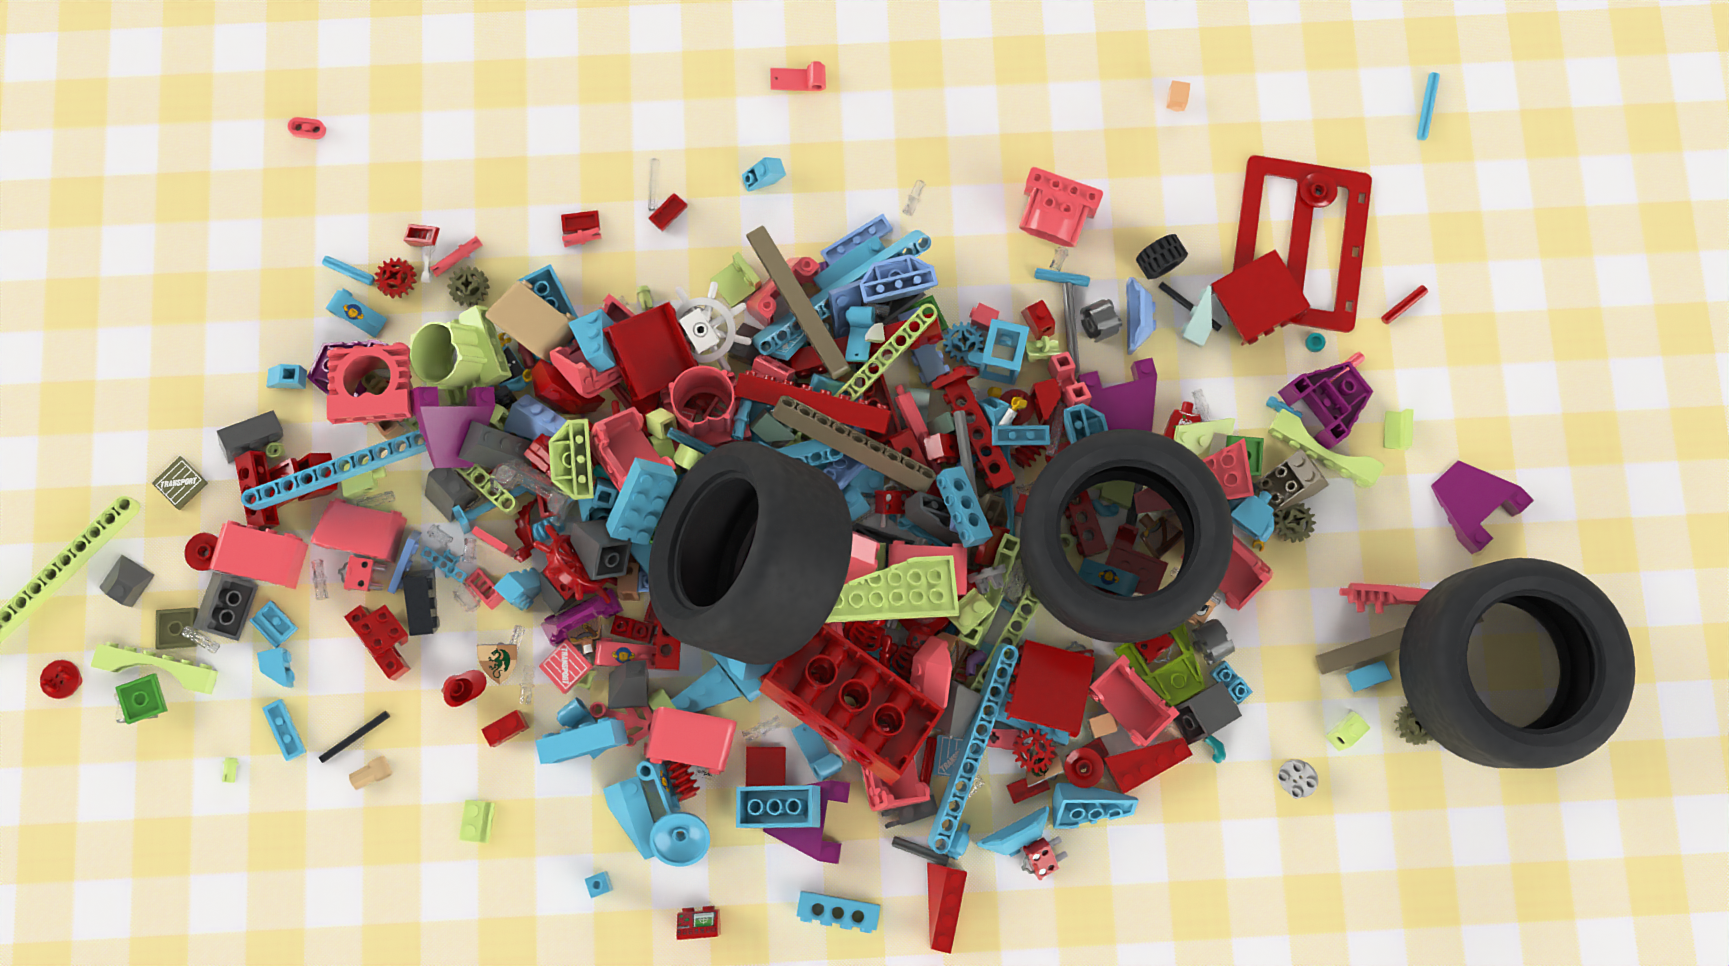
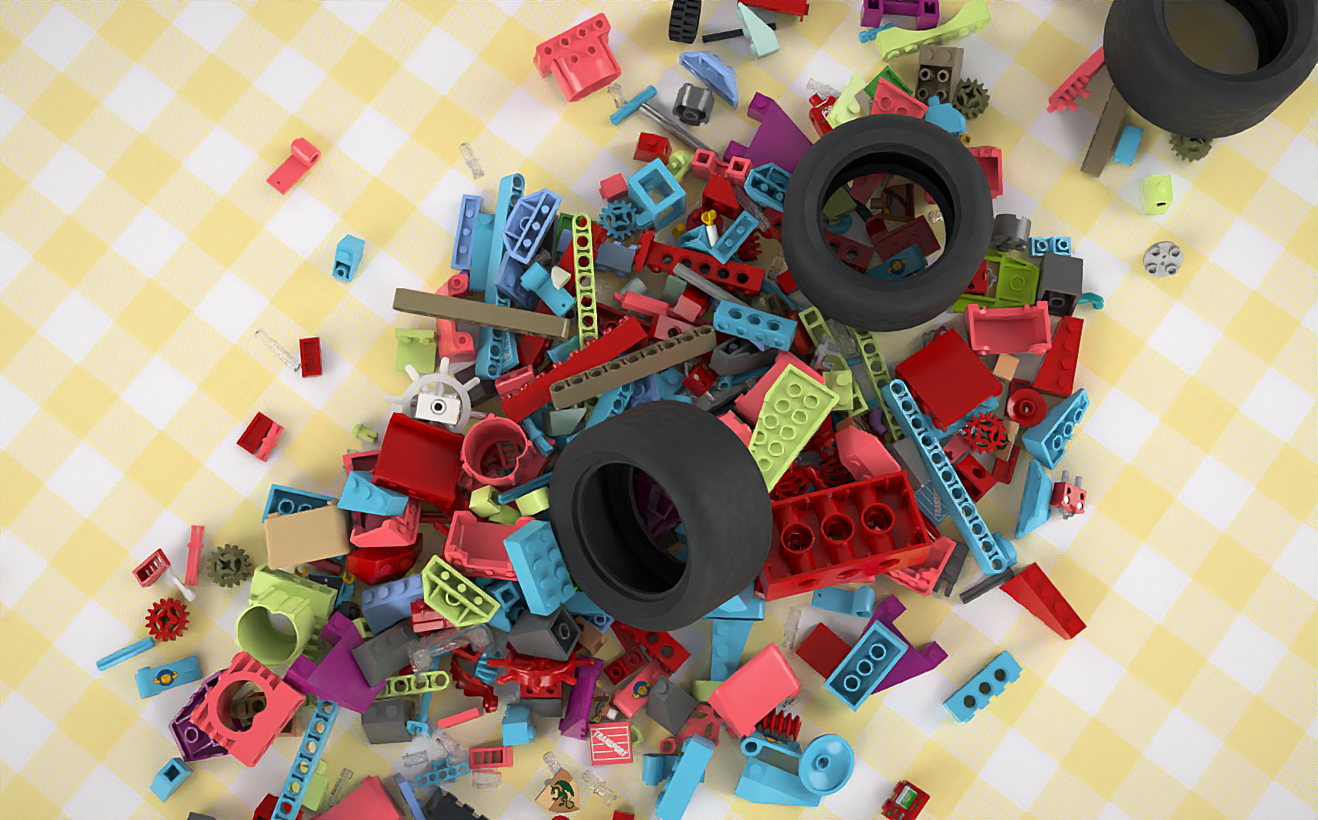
camera: 45 degrees left, 0 degrees up
(993, 771) = (974, 477): none -> red brick

